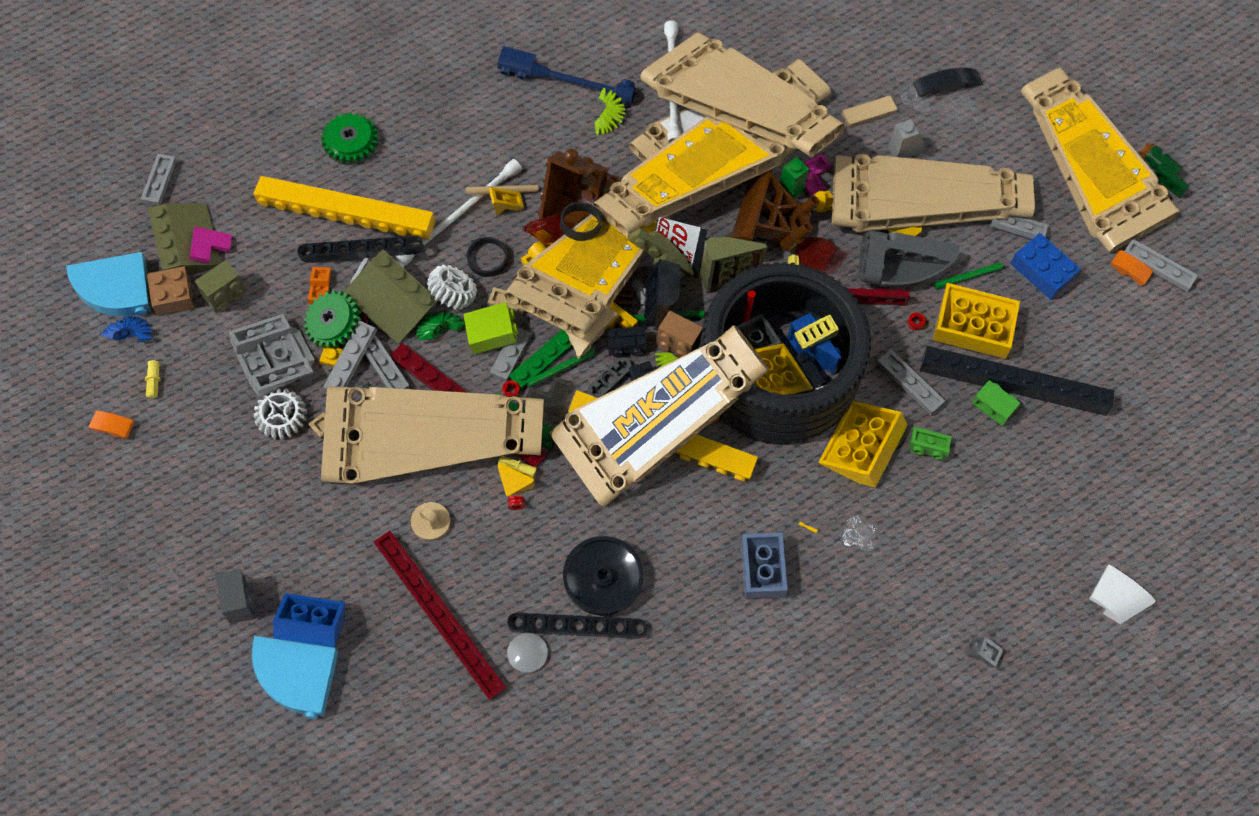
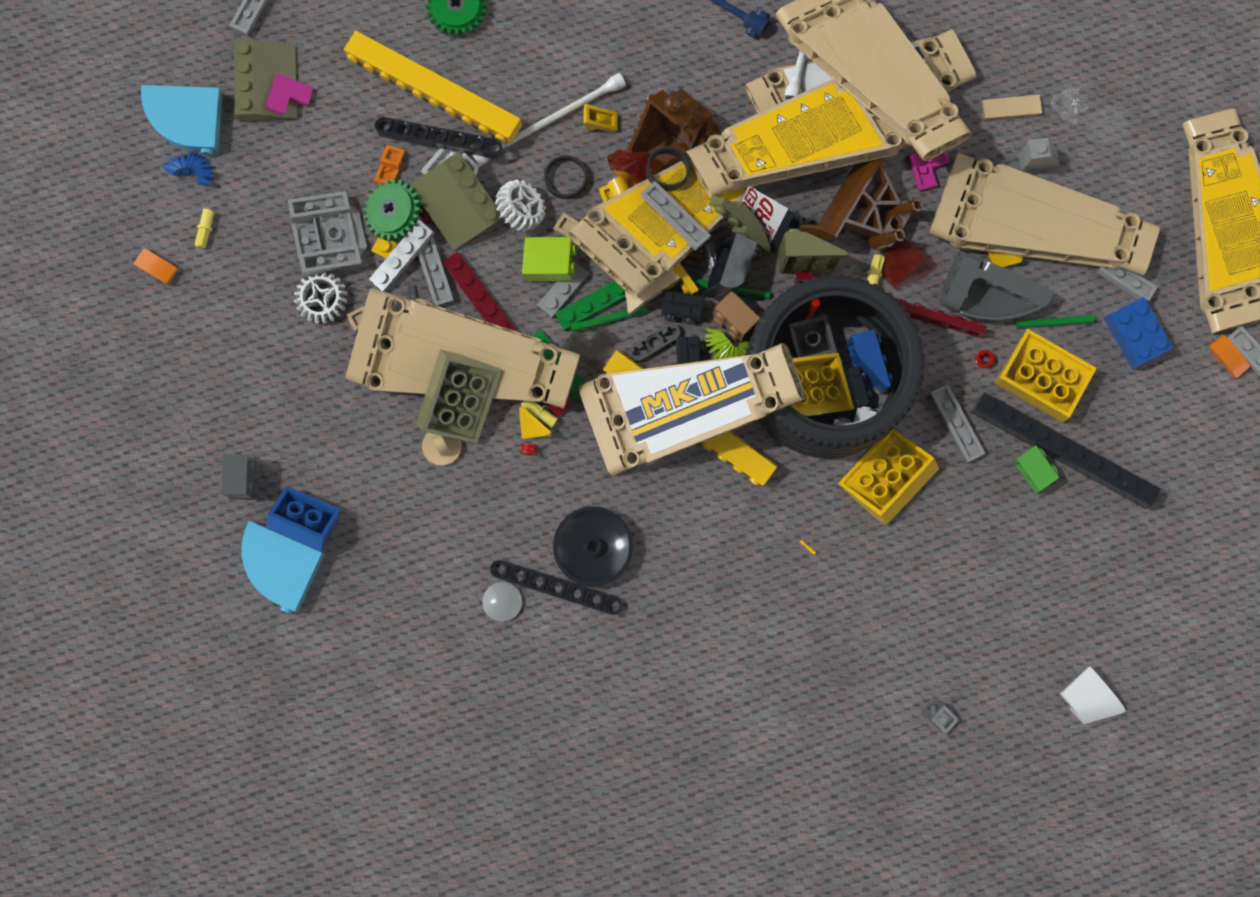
camera: 15 degrees right, 15 degrees up
(170, 291) = (240, 137): medium nougat brick -> none
(221, 286) = (289, 147): olive brick -> none
(436, 324) = (496, 239): green hair -> none
(436, 466) = (458, 397): none -> olive slope
(440, 616) = (427, 543): dark red plate -> none
(510, 384) = (548, 326): red bush -> none
(518, 188) = (613, 107): tan piece -> none
(599, 257) = (675, 215): none -> light grey plate
(612, 112) = (735, 43): lime hair -> none
(763, 565) = (751, 577): sand blue brick -> none
(794, 177) = (904, 171): green brick -> none
(825, 199) = (929, 200): yellow plate -> none
(828, 321) = (880, 345): light yellow slope -> none
(862, 534) = (858, 566): clear plate -> none
(930, 443) = (955, 493): bright green bracket -> none
(945, 79) = (1107, 92): black slope -> none

